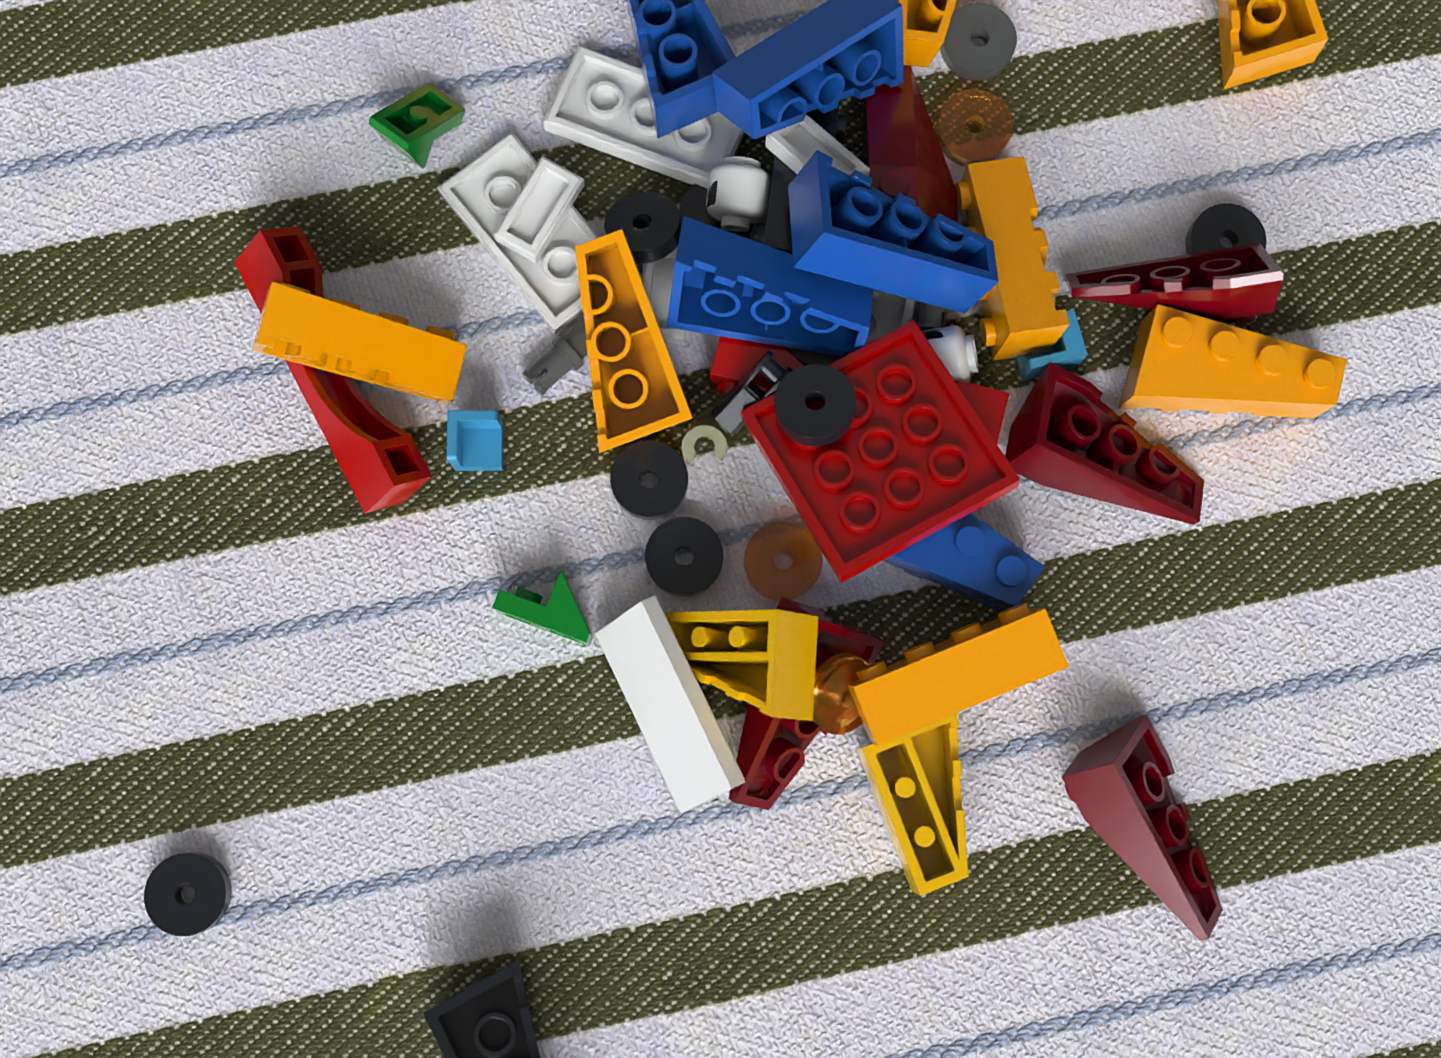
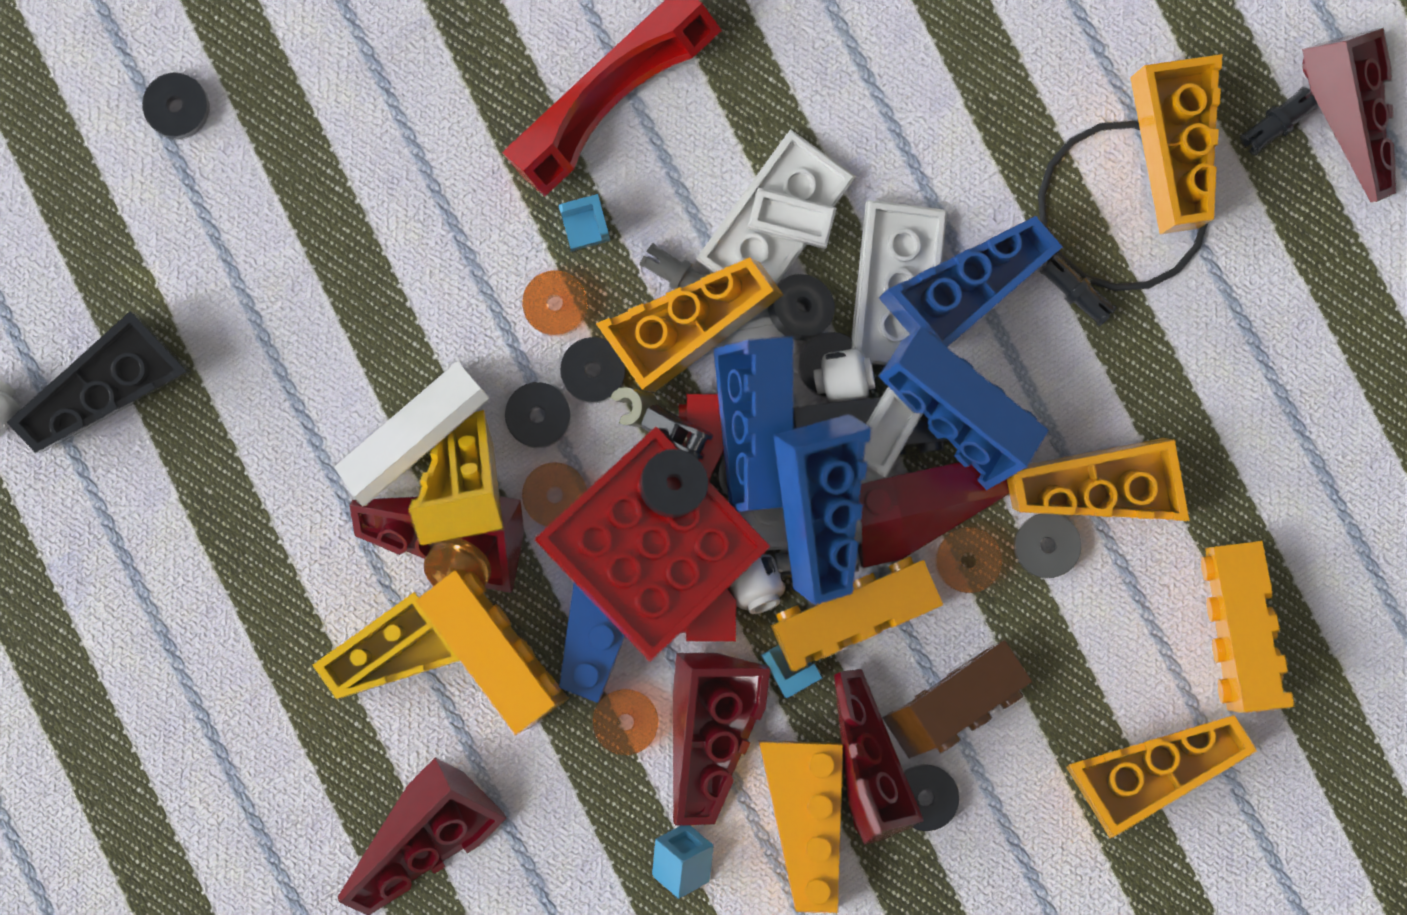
camera: 80 degrees right, 5 degrees up
(358, 344) = (631, 108): light orange wedge -> none
(417, 121) = (839, 98): green slope -> none
(555, 481) = (550, 285): none -> clear orange piece
(559, 617) = (461, 330): green slope -> none
(1084, 538) = (620, 740): none -> clear orange piece
(1136, 172) = (959, 701): none -> reddish brown wedge
(1240, 524) = (682, 860): none -> dark azure panel

